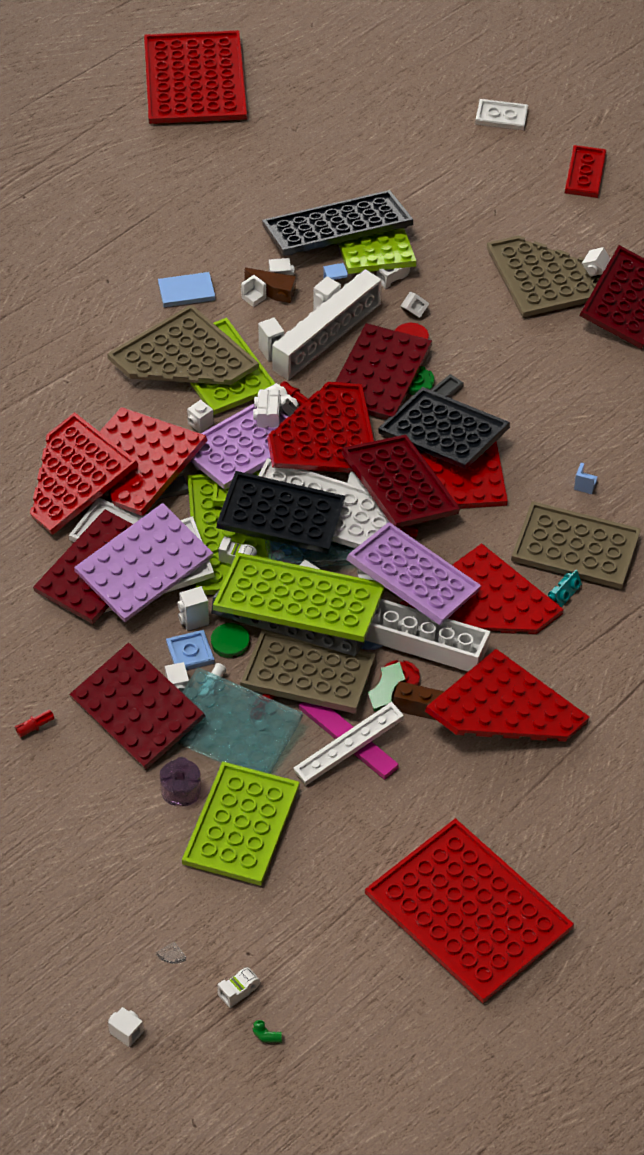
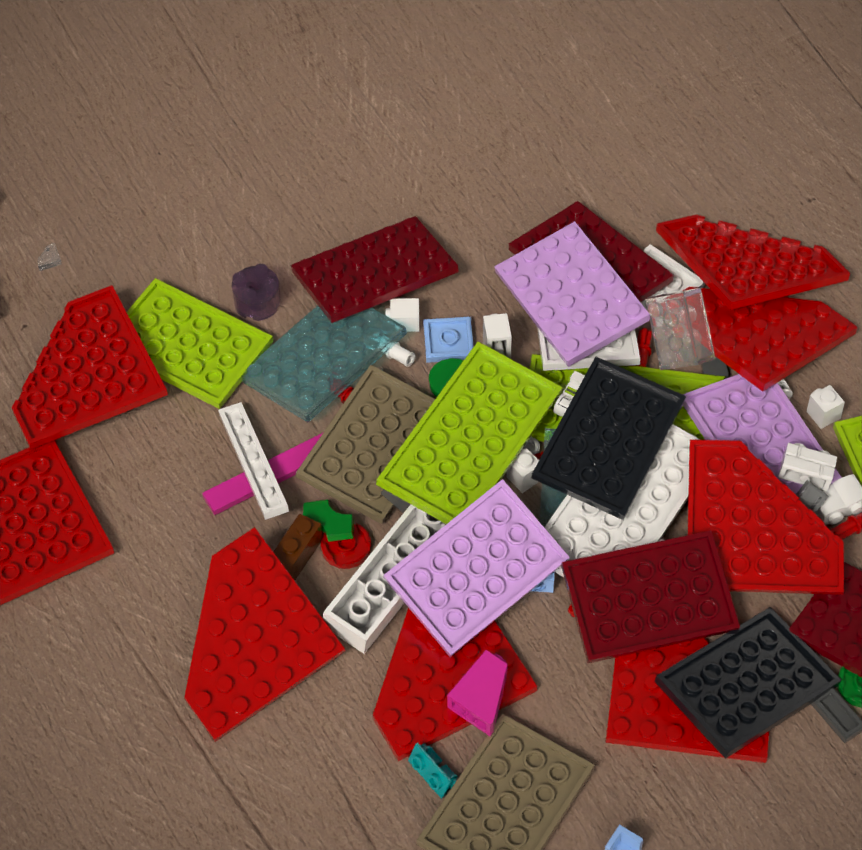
camera: 105 degrees right, 5 degrees up
(34, 723) = (383, 180): red axle -> none
(167, 486) = (680, 329): none -> clear brick
(296, 874) = (86, 371): none -> red plate
(504, 562) = (480, 692): none -> dark pink slope

